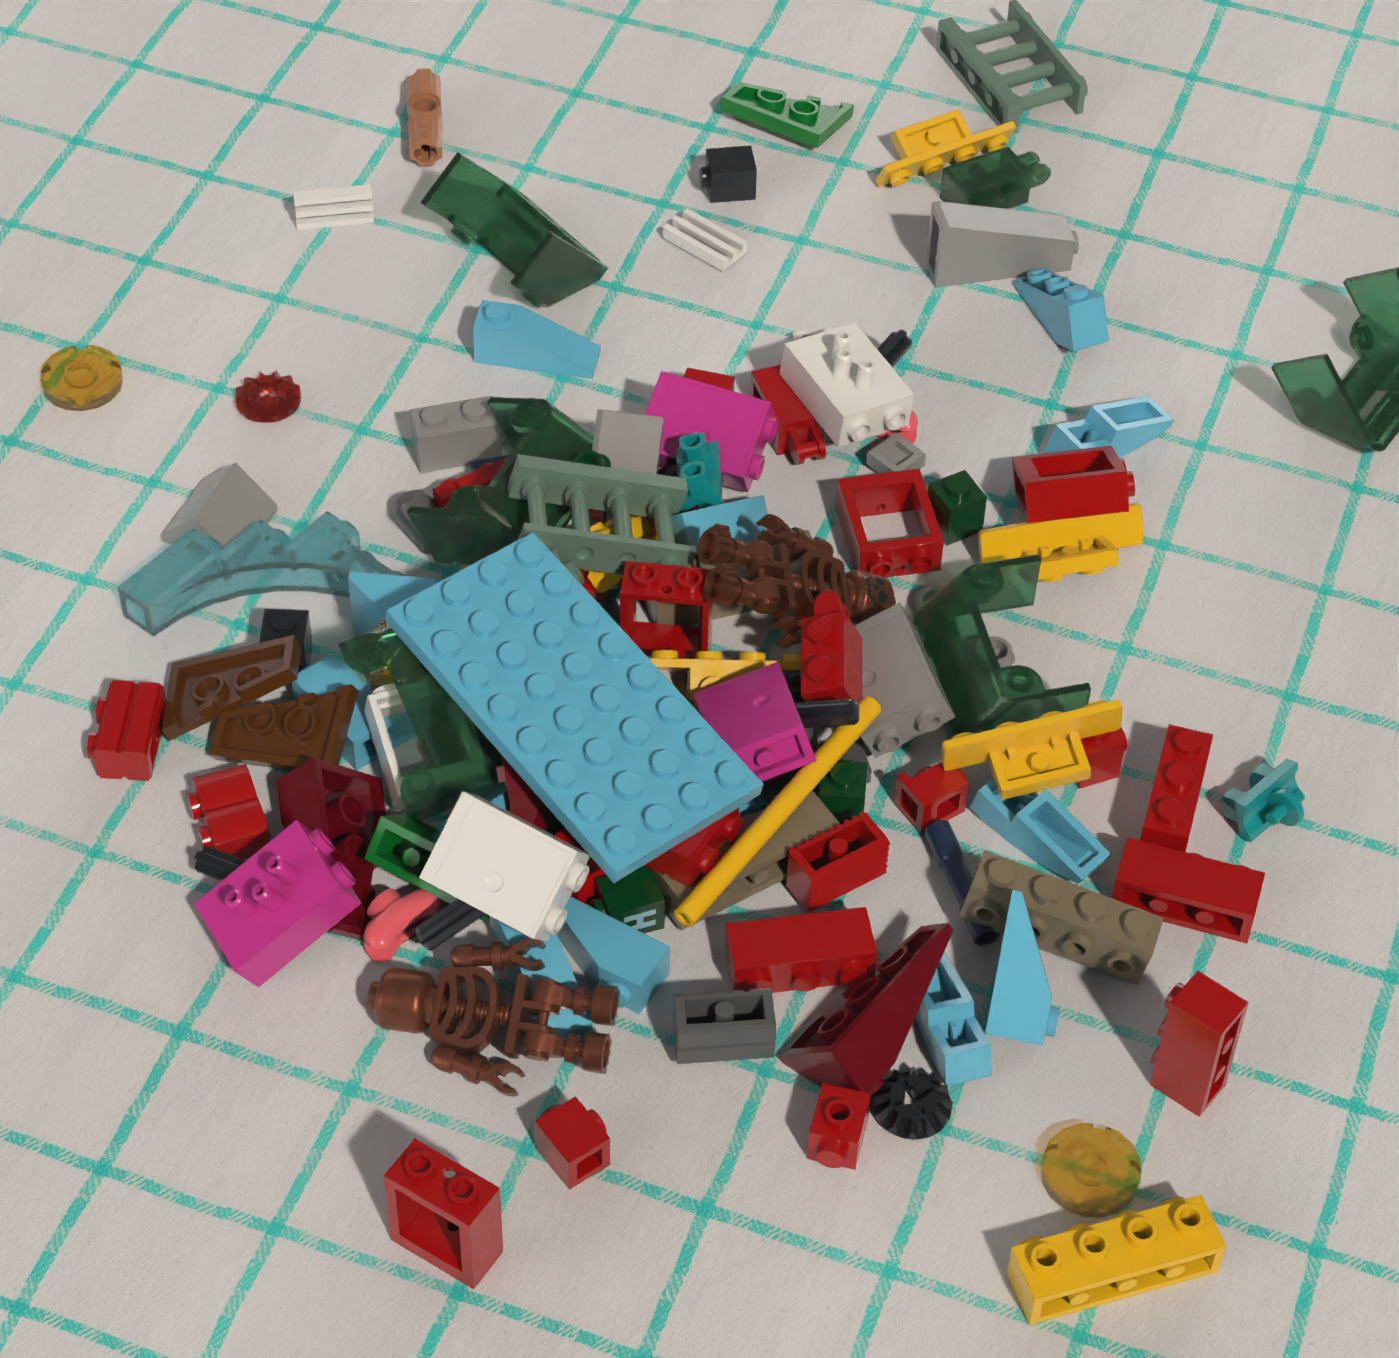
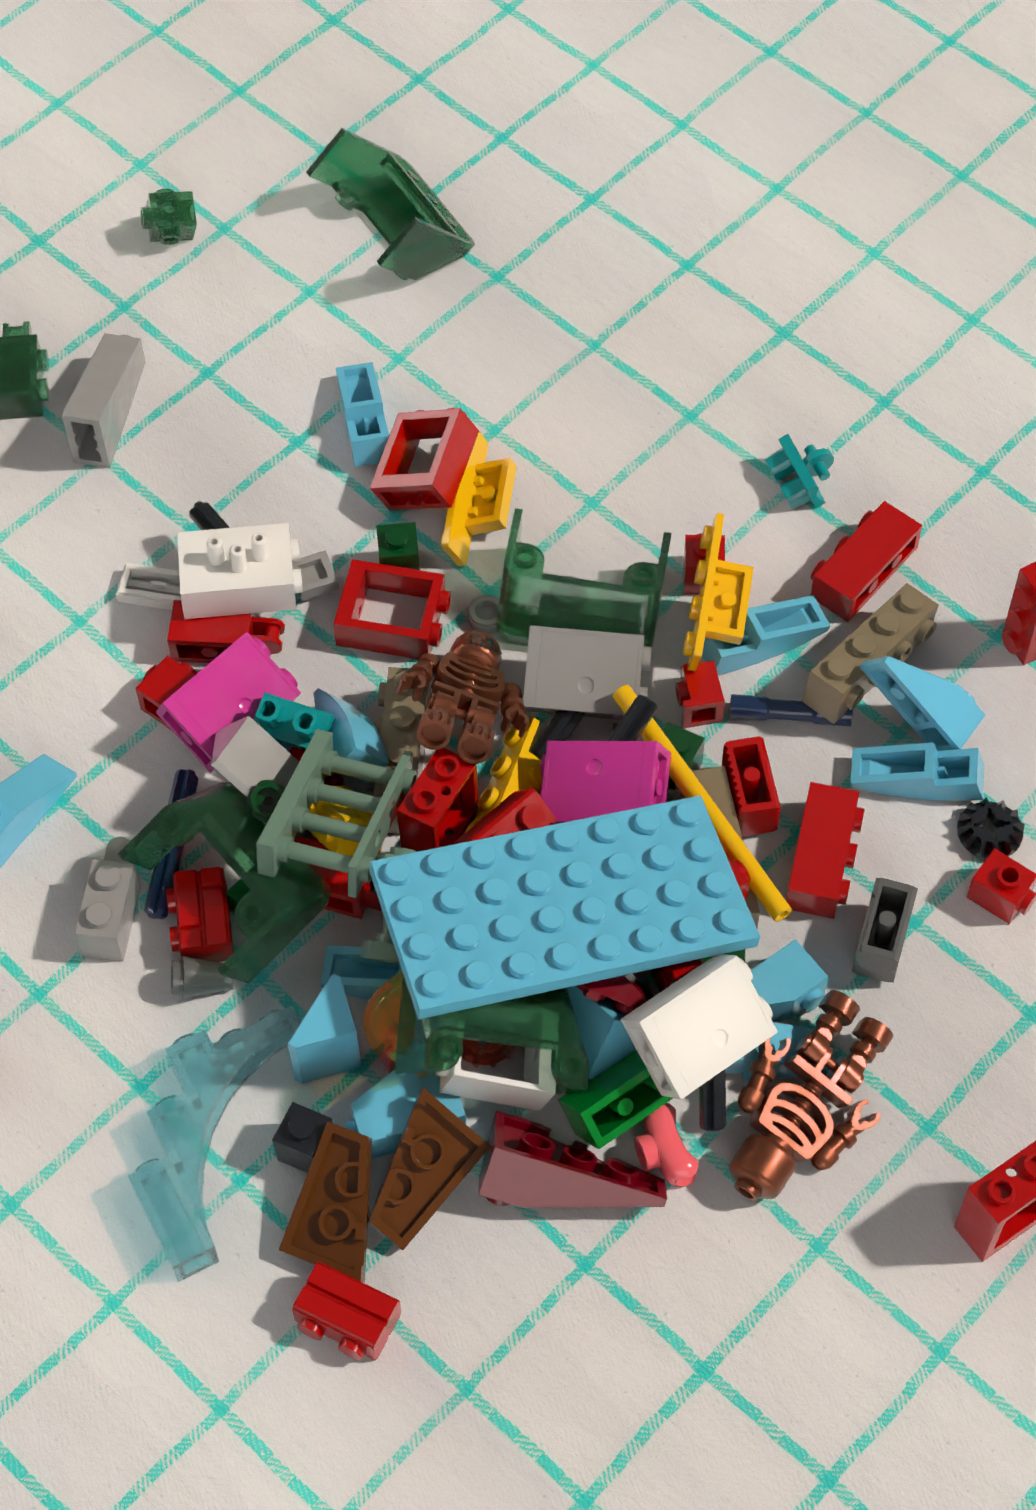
camera: 65 degrees left, 10 degrees up
(222, 507) = (95, 1153): light grey slope -> none
(229, 812) = (488, 1250): red brick -> none
(274, 900) = (625, 1239): dark pink piece -> none
(572, 1141) = (949, 1085): red brick -> none
(676, 660) = (516, 813): none -> red brick
(830, 652) = (561, 699): red brick -> none
(868, 1031) = (917, 826): dark red wedge -> none
(1066, 310) = (204, 382): medium azure slope -> none
(1176, 787) = (775, 528): red brick -> none
(1237, 217) = (169, 216): none -> clear green brick

